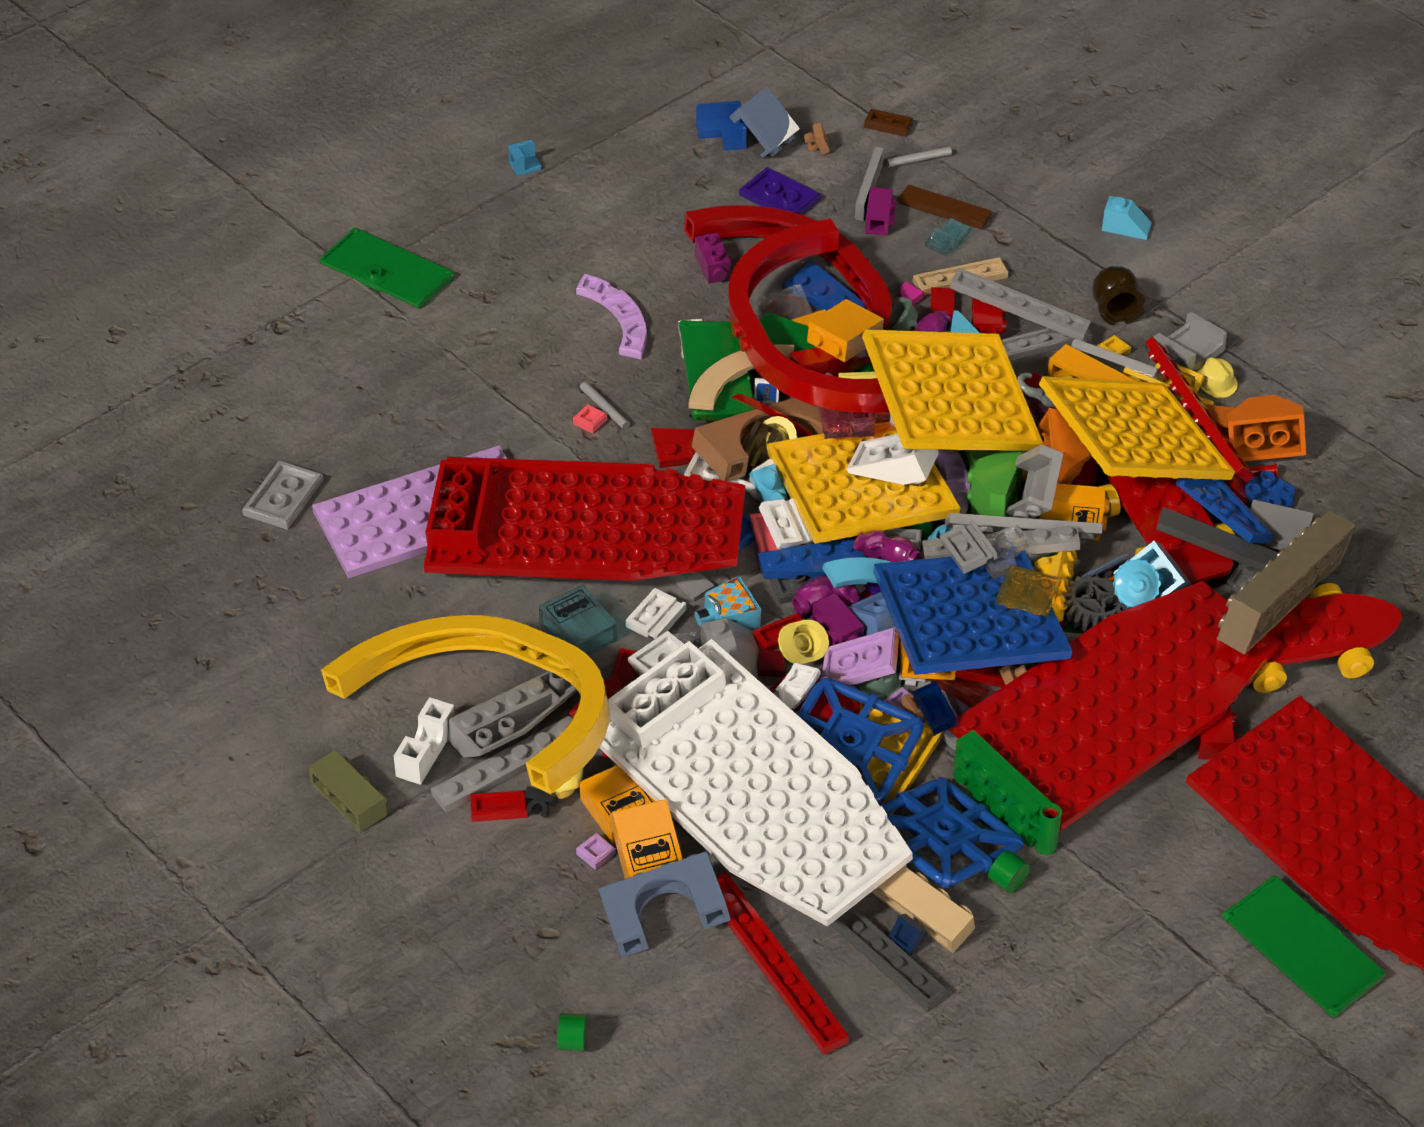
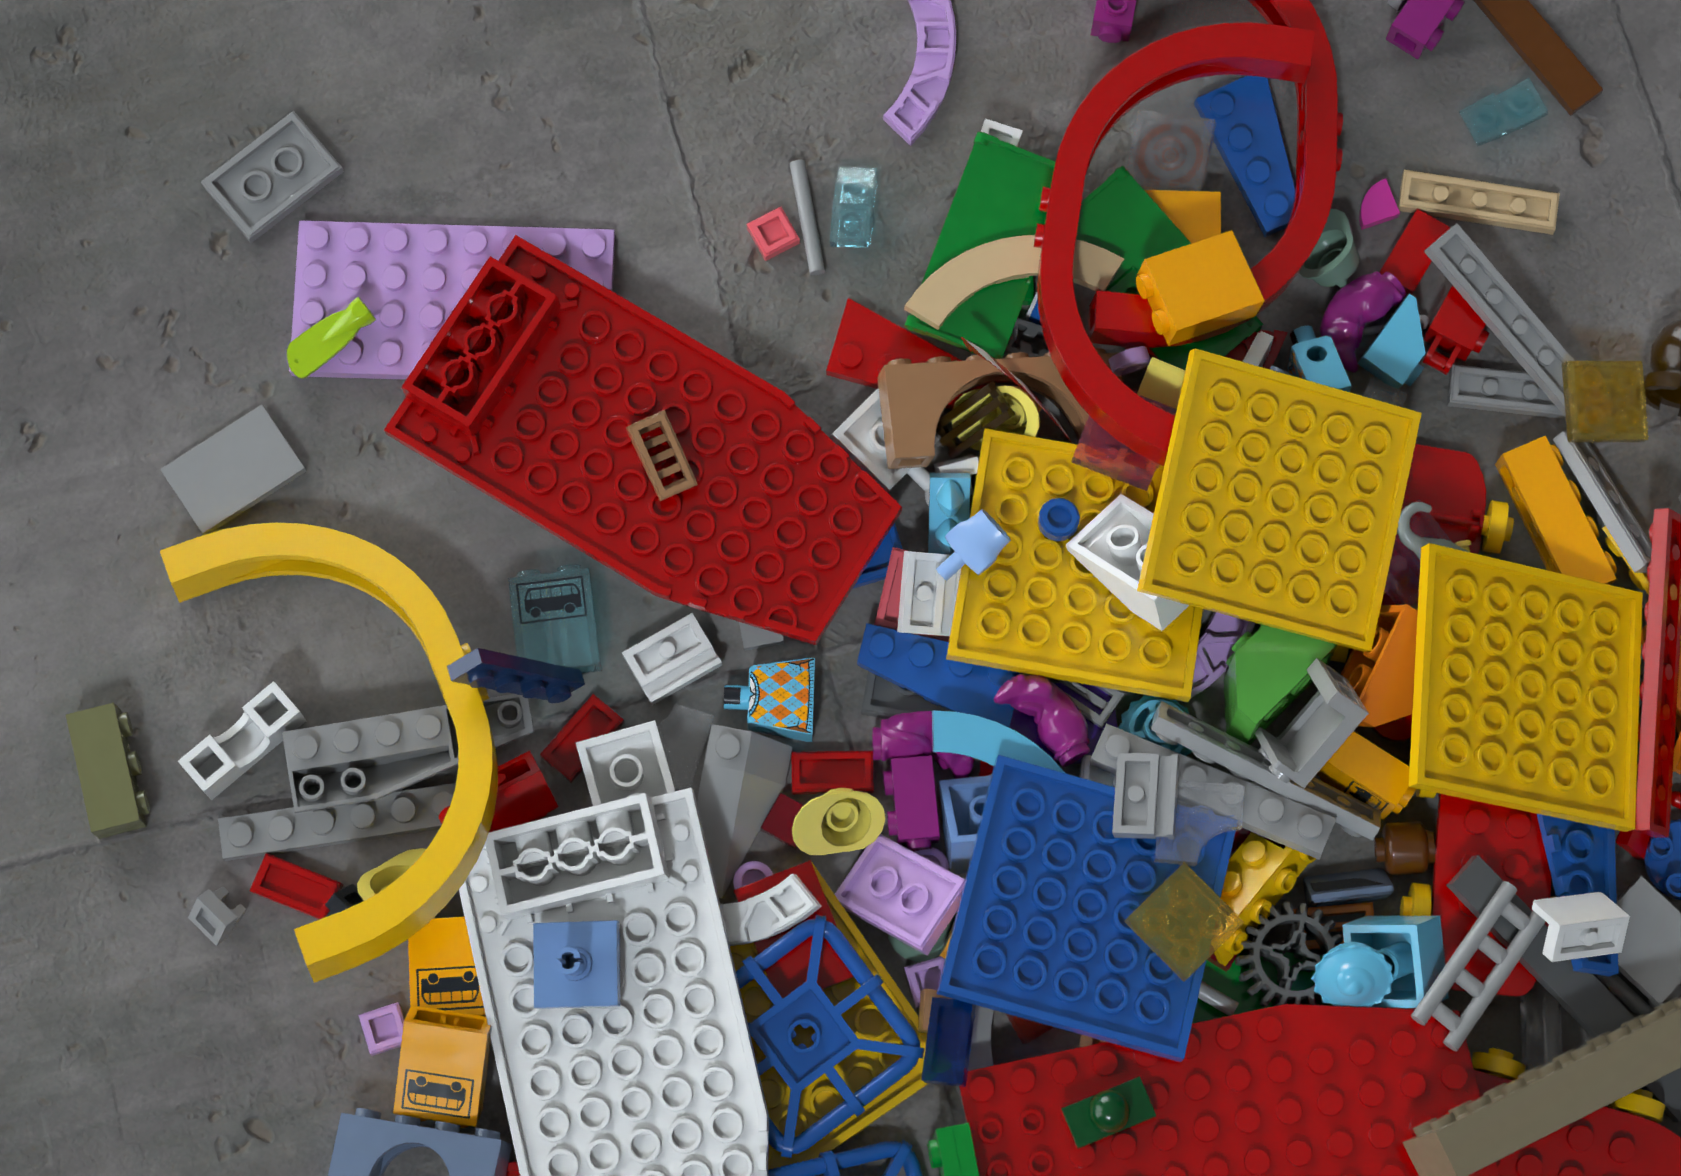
camera: 25 degrees right, 30 degrees up
(339, 628) = (233, 470): none -> light grey tile
(363, 542) = (327, 338): none -> lime piece
(457, 834) = (214, 916): none -> light grey tile
(575, 631) = (516, 675): none -> dark blue plate
(592, 499) = (661, 420): none -> medium nougat slope
(629, 389) = (853, 207): none -> clear light blue slope
(698, 744) = (576, 964): none -> medium blue tile
(797, 482) = (974, 544): none -> light blue piece
(835, 462) = (1058, 519): none -> blue tile
(1047, 698) = (1108, 1112): none -> dark green tile
(1086, 318) = (1604, 401): none -> clear yellow tile
(1116, 345) = (1626, 462): yellow tile -> none
(1120, 539) = (1405, 848): none -> reddish brown head
(1189, 558) = (1455, 968): none -> light grey bar
(1242, 513) = (1582, 926): none -> white panel

